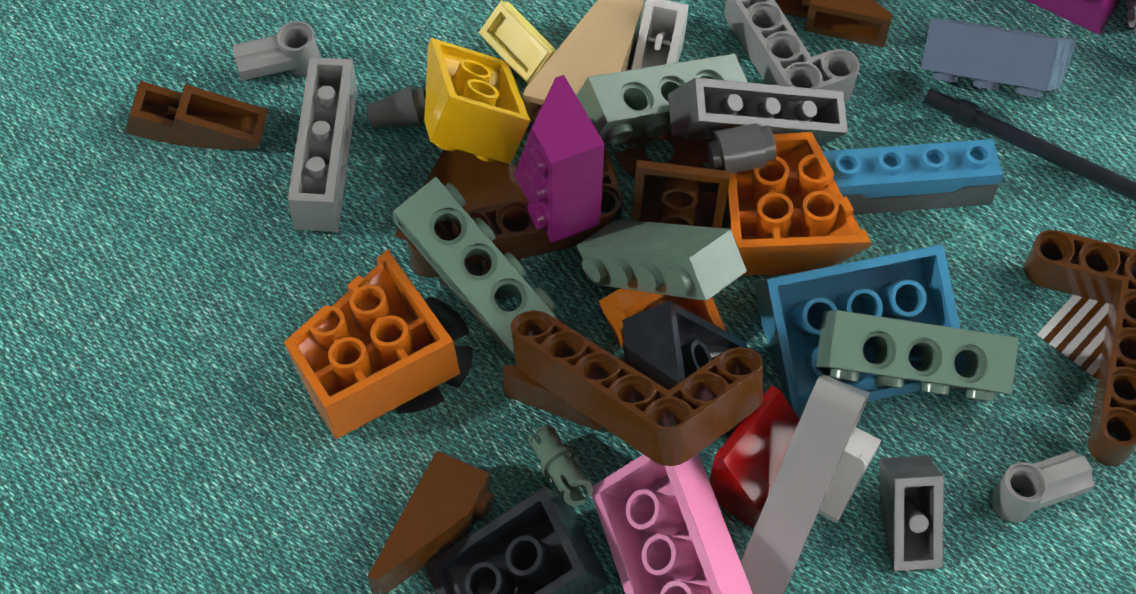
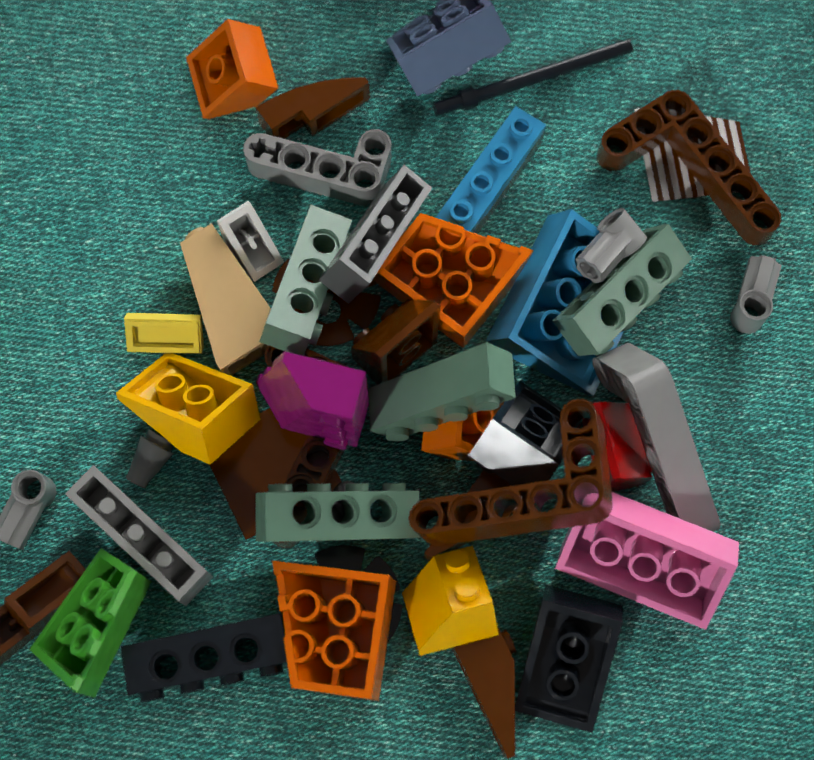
camera: 50 degrees left, 15 degrees up
(217, 160) = (91, 623): none -> bright green wedge
(220, 226) = (144, 658): none -> black brick
(479, 423) = (450, 602): none -> yellow slope
(560, 465) = (521, 572): sand green pin -> none
(741, 148) = (403, 270): dark grey brick -> none
(912, 511) = (714, 382): dark grey slope -> none
(951, 304) = (616, 239): none -> light grey piece

